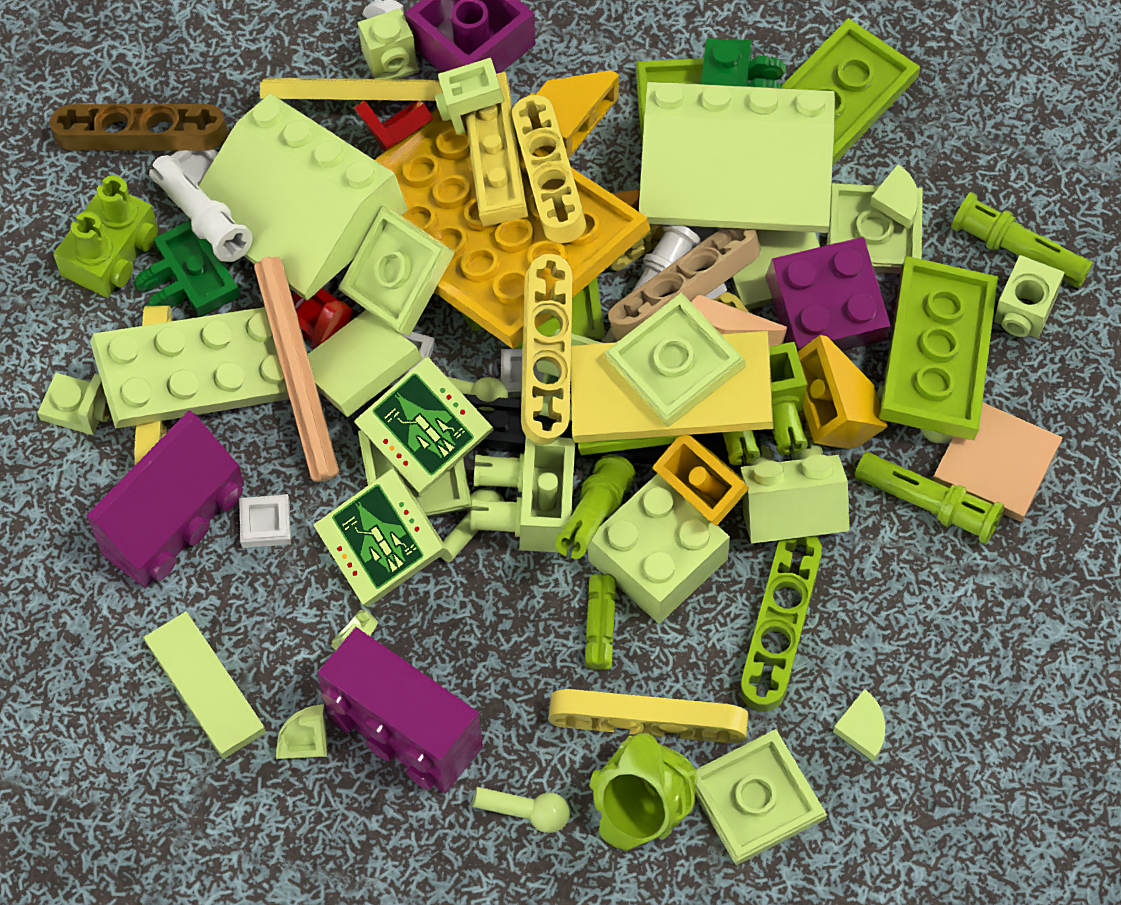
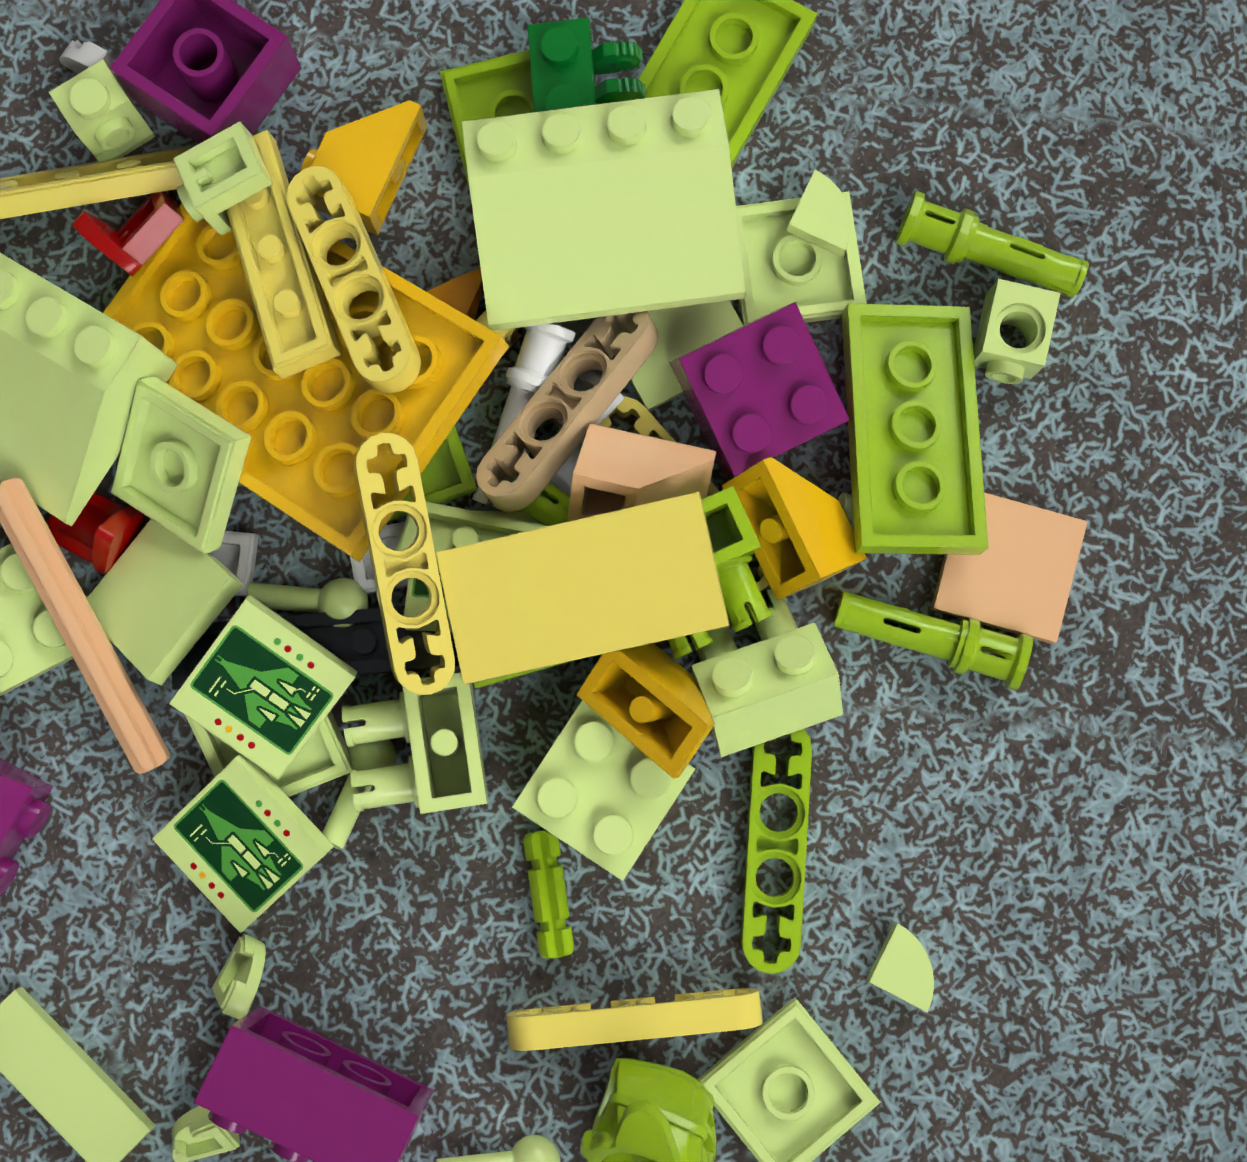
camera: 15 degrees left, 20 degrees up
(264, 521) = (90, 836): white tile -> none
(599, 498) = (515, 738): lime pin -> none
(675, 359) = (580, 557): yellowish green tile -> none

